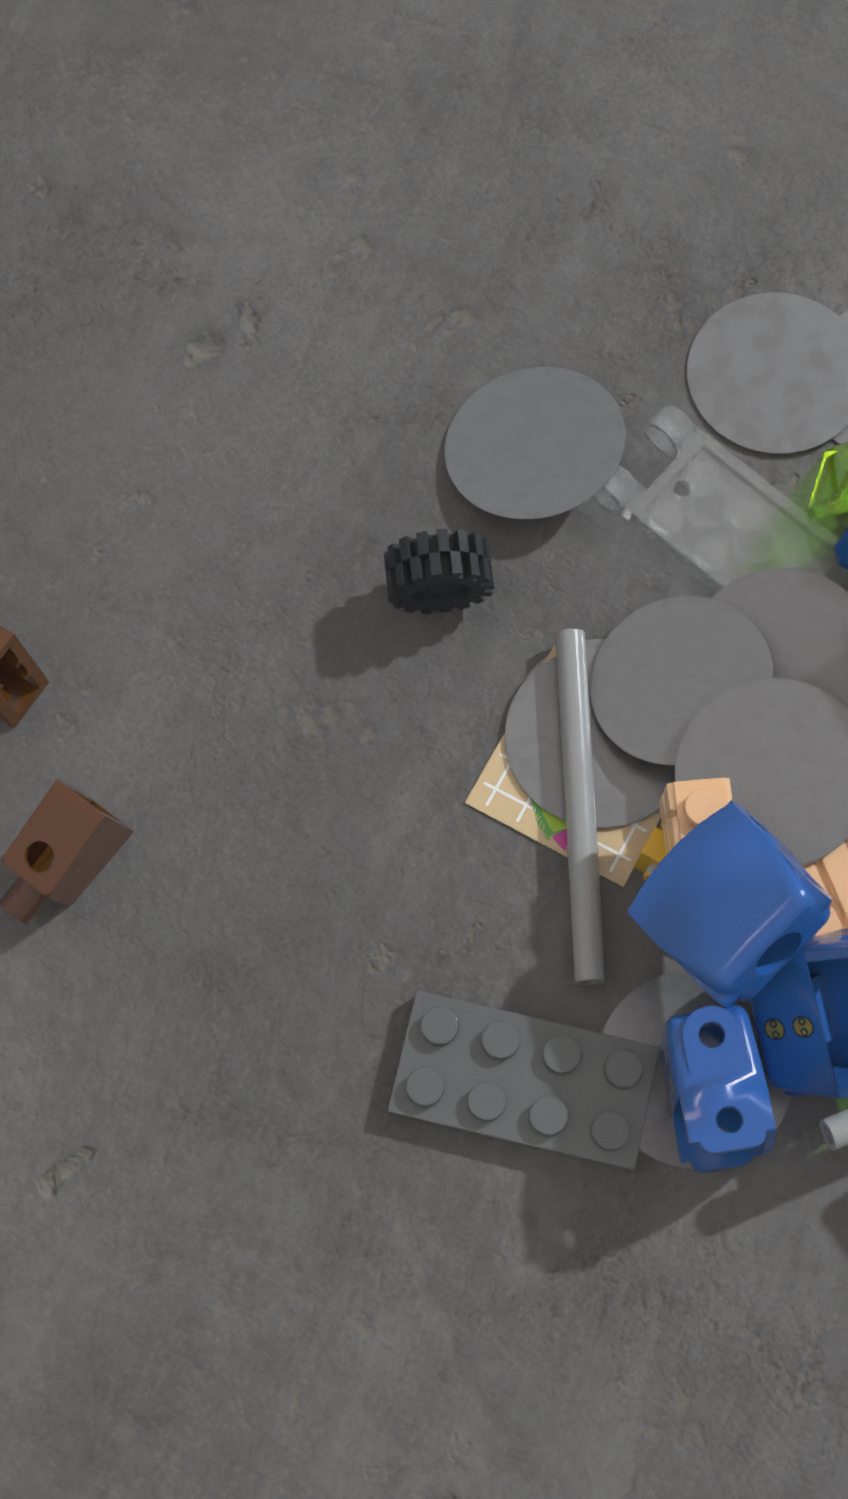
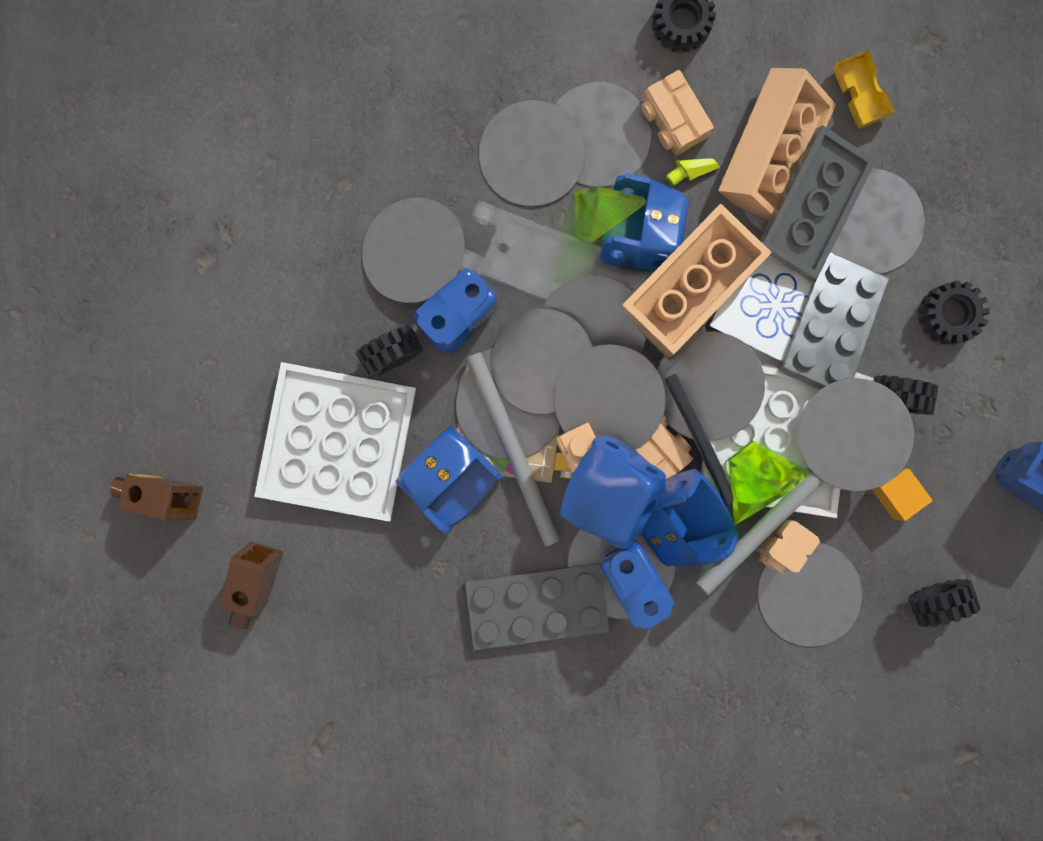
camera: 25 degrees left, 15 degrees up
(293, 688) = (335, 442): none -> white plate
(458, 809) = (448, 479): none -> blue piece
(575, 543) = (458, 308): none -> blue piece

